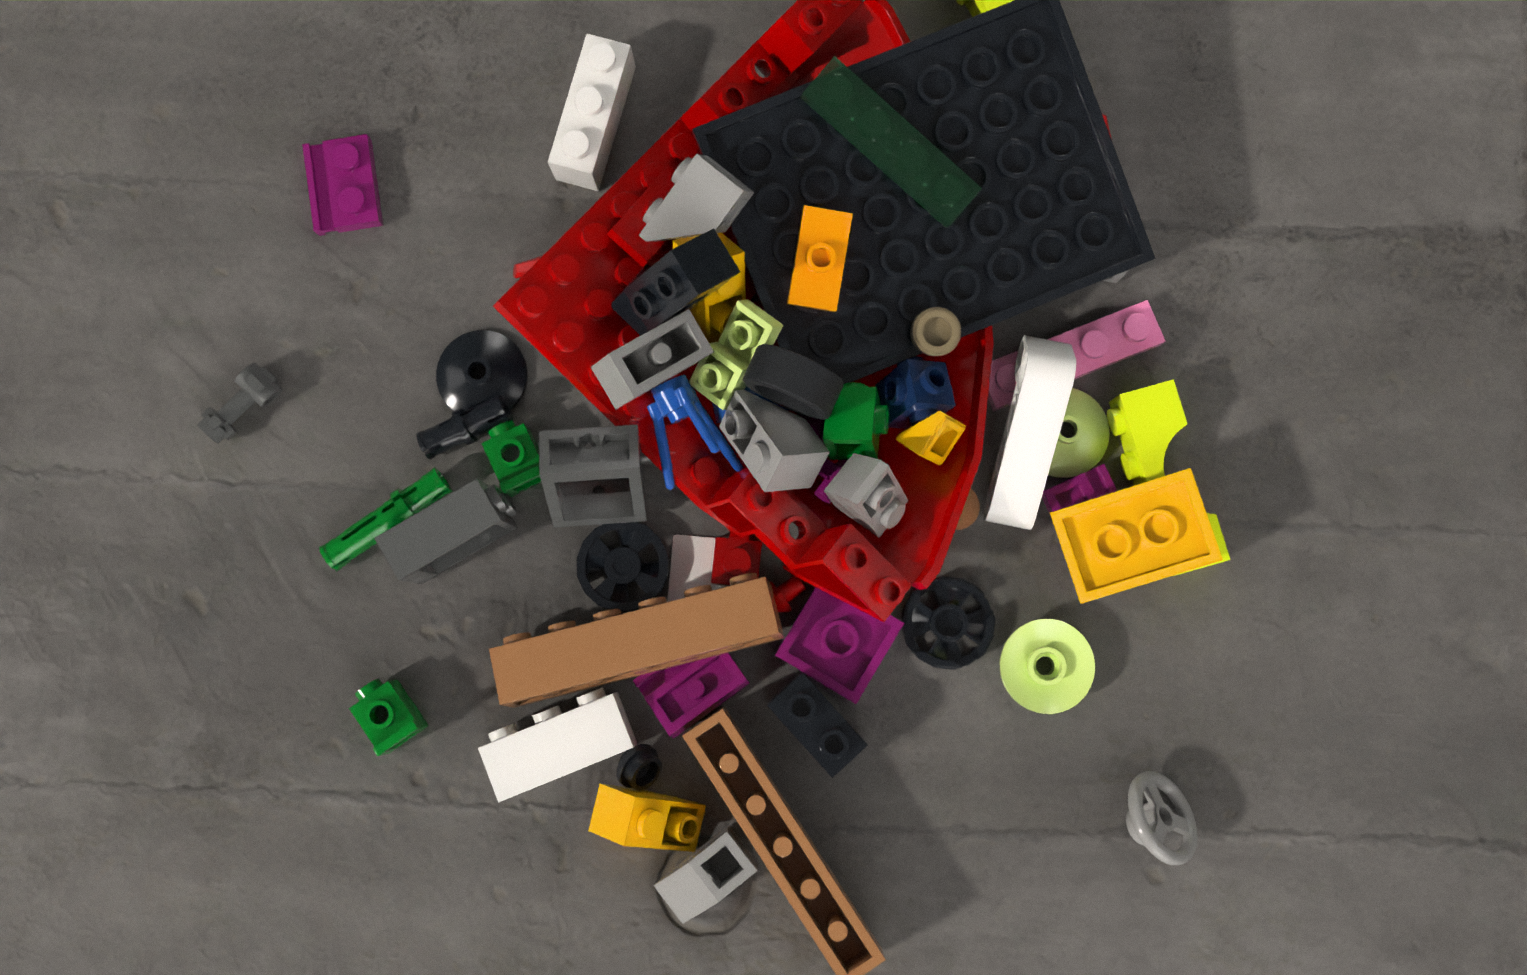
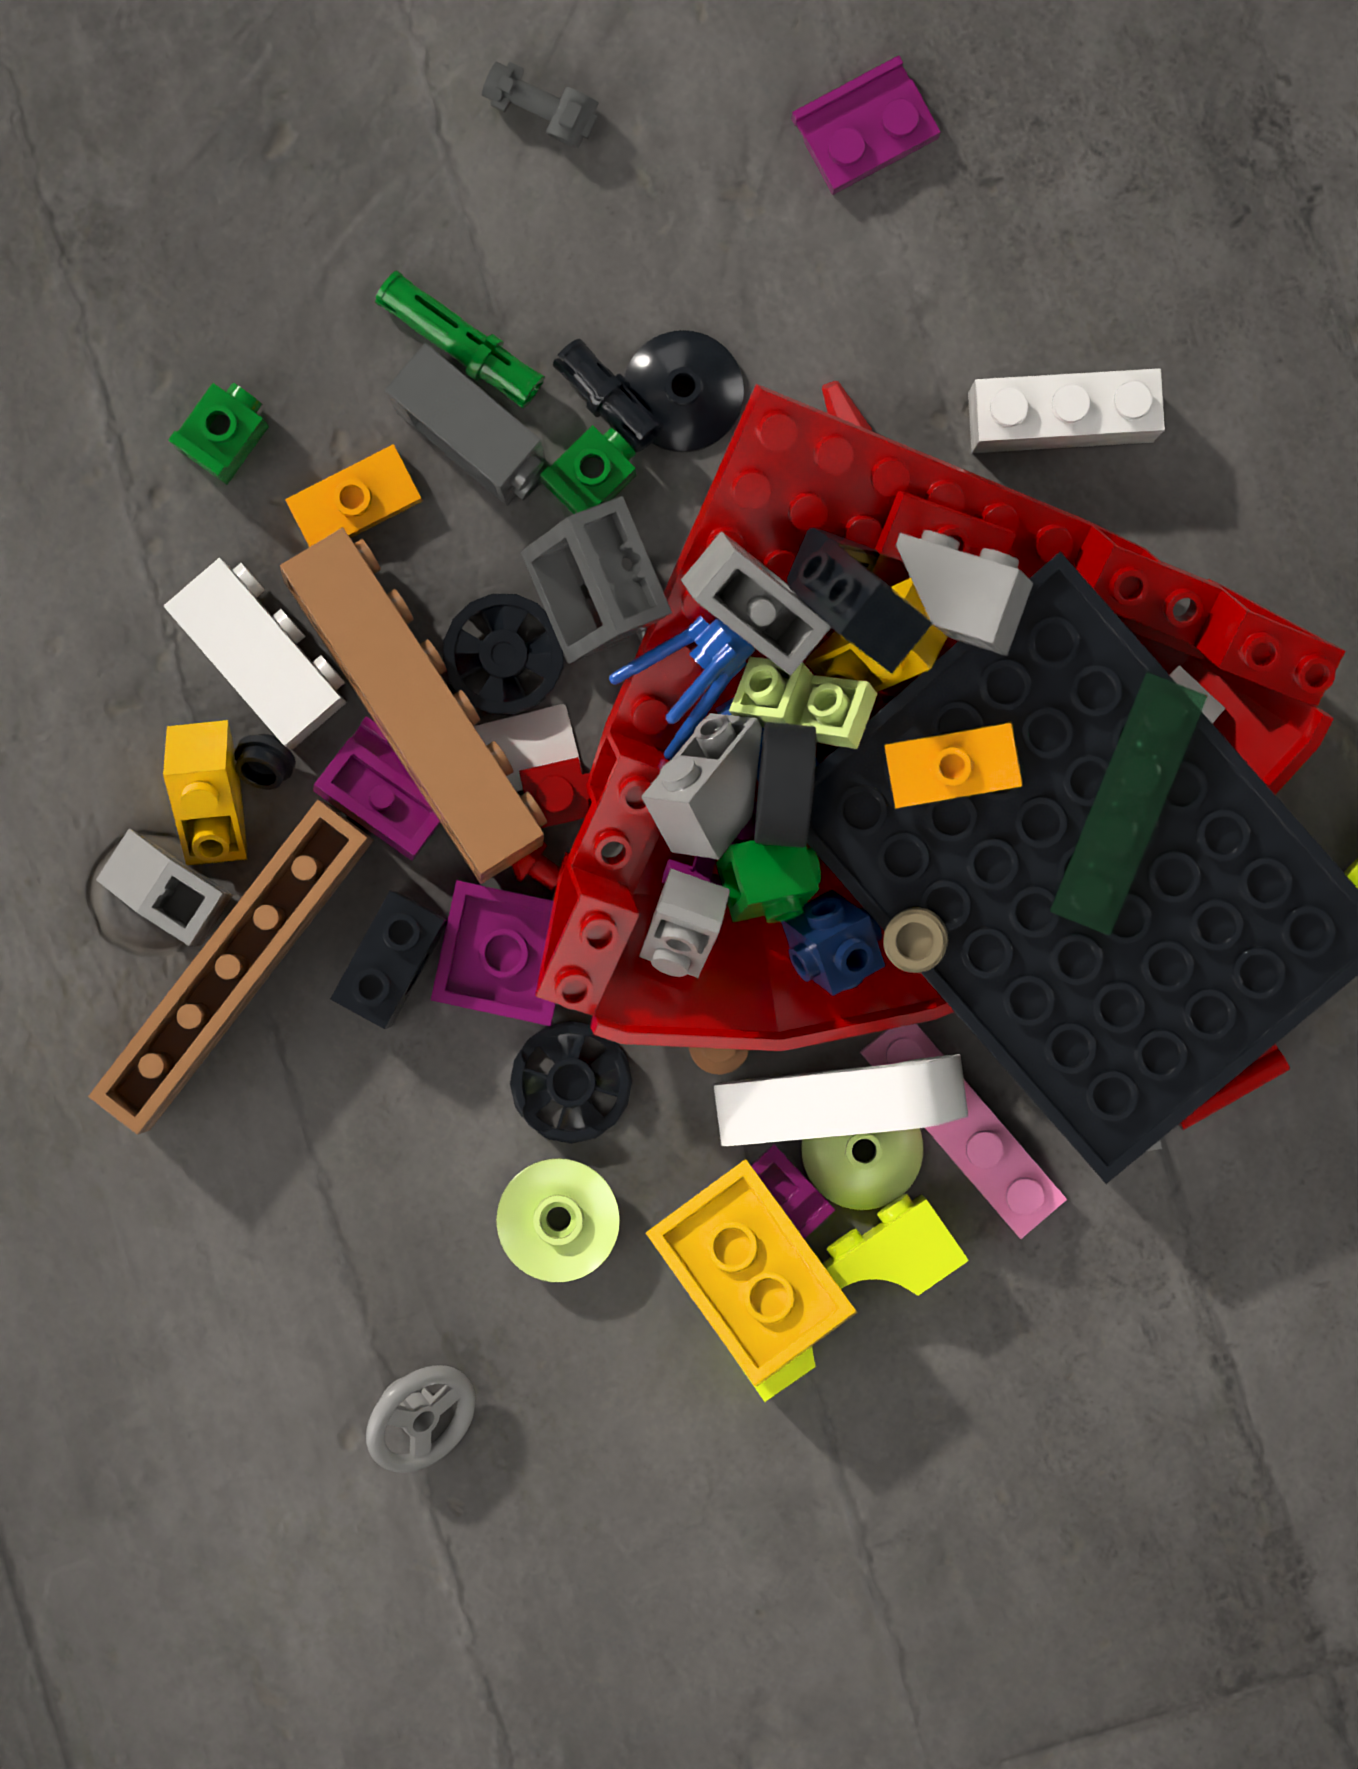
camera: 65 degrees right, 5 degrees up
(471, 633) = (355, 497): none -> light orange plate
(933, 437) = (784, 981): yellow slope -> none

